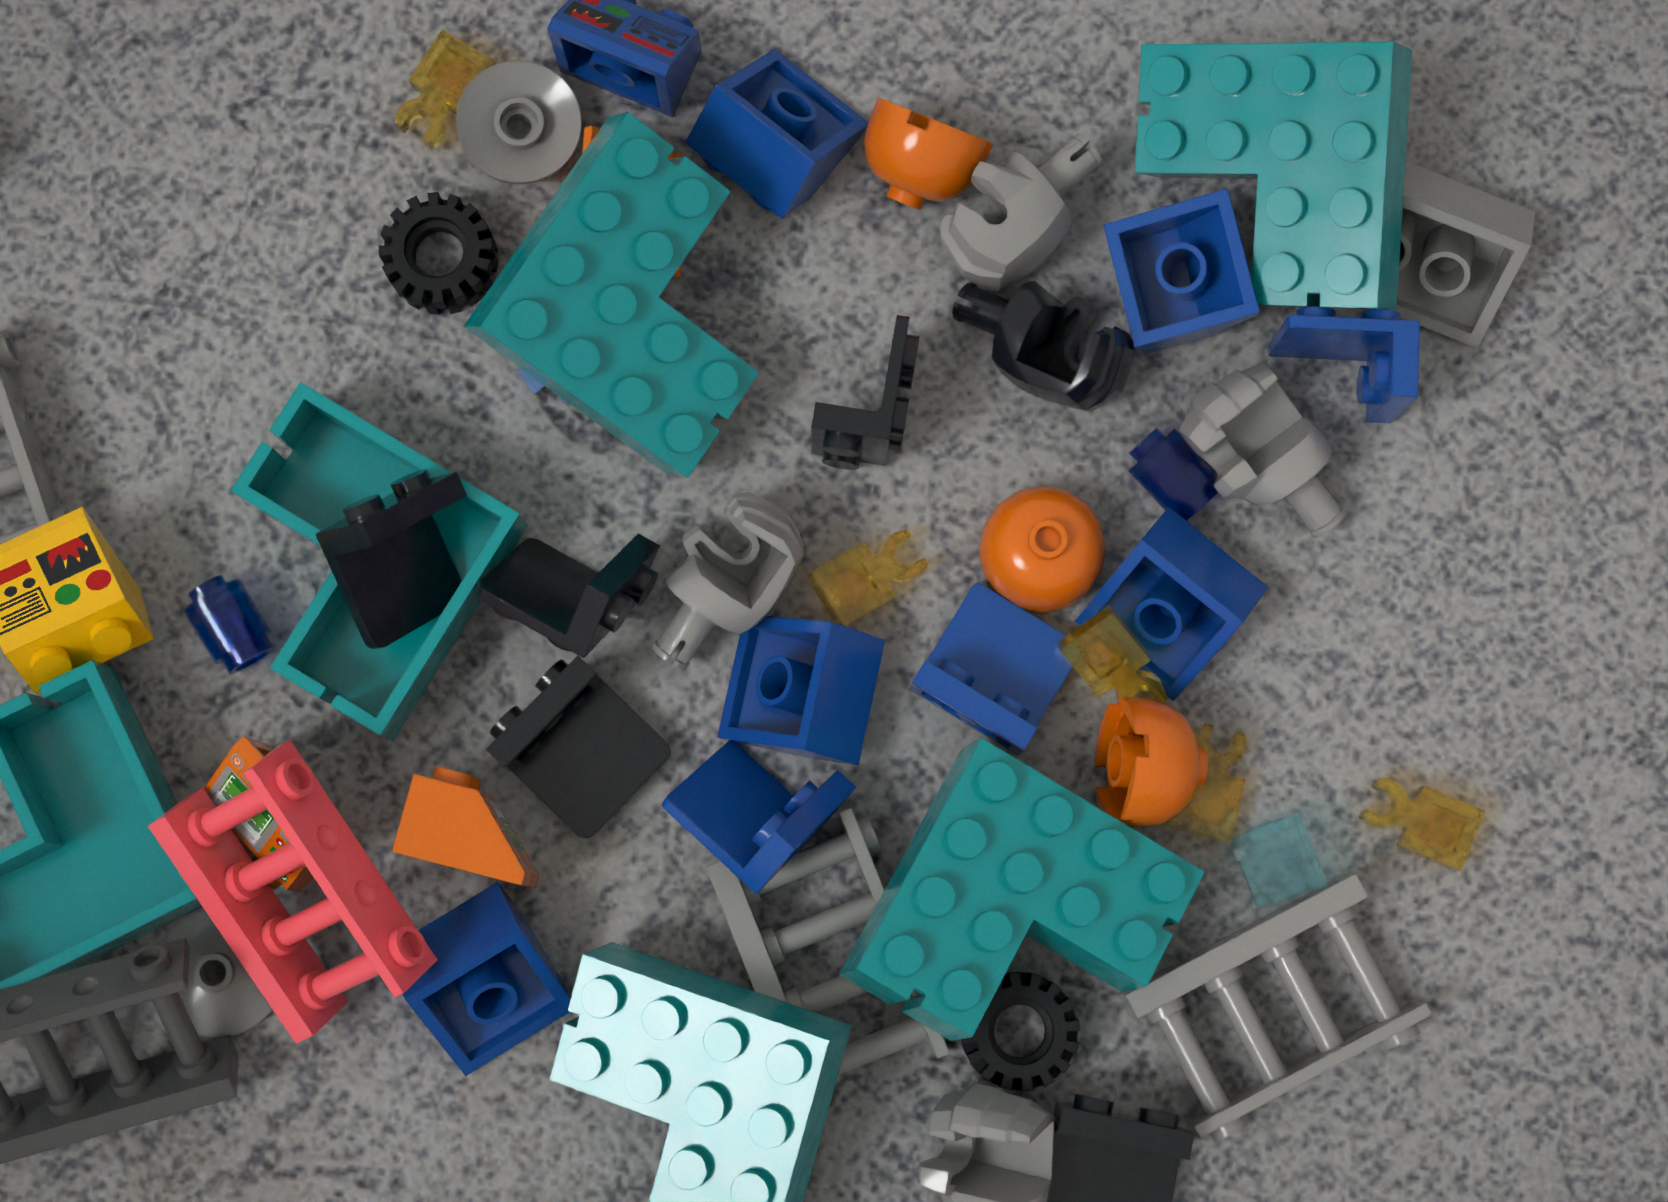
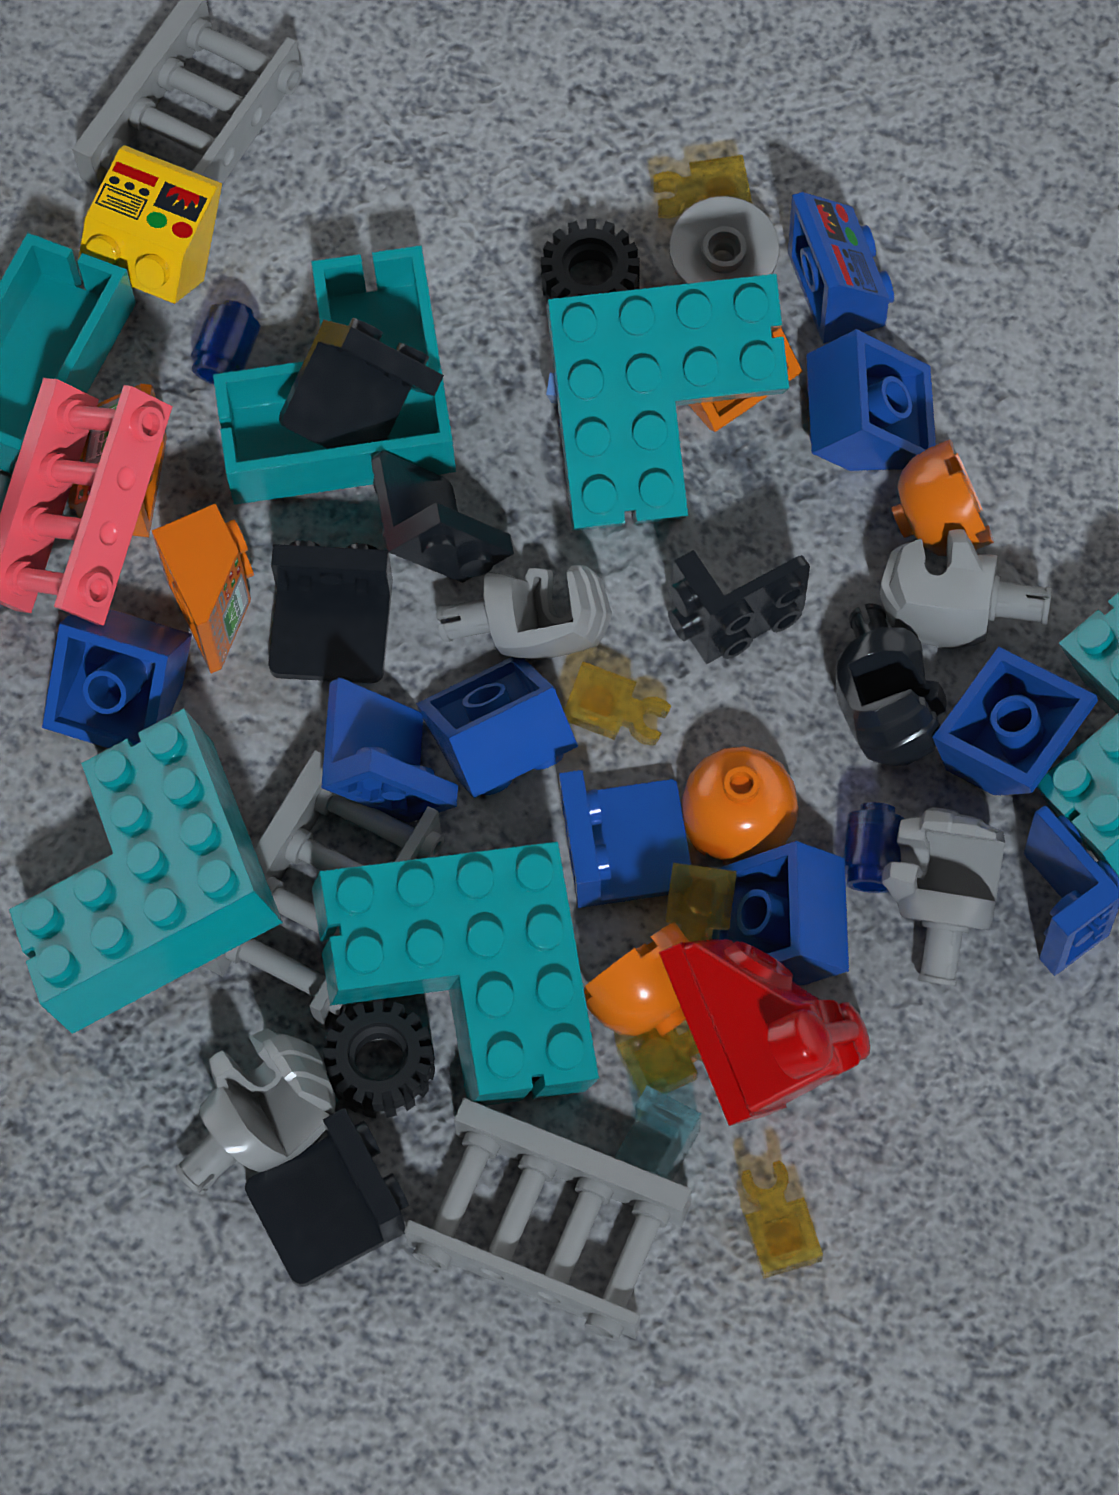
camera: 55 degrees right, 15 degrees down
(1278, 706) = (758, 1028): none -> red piece

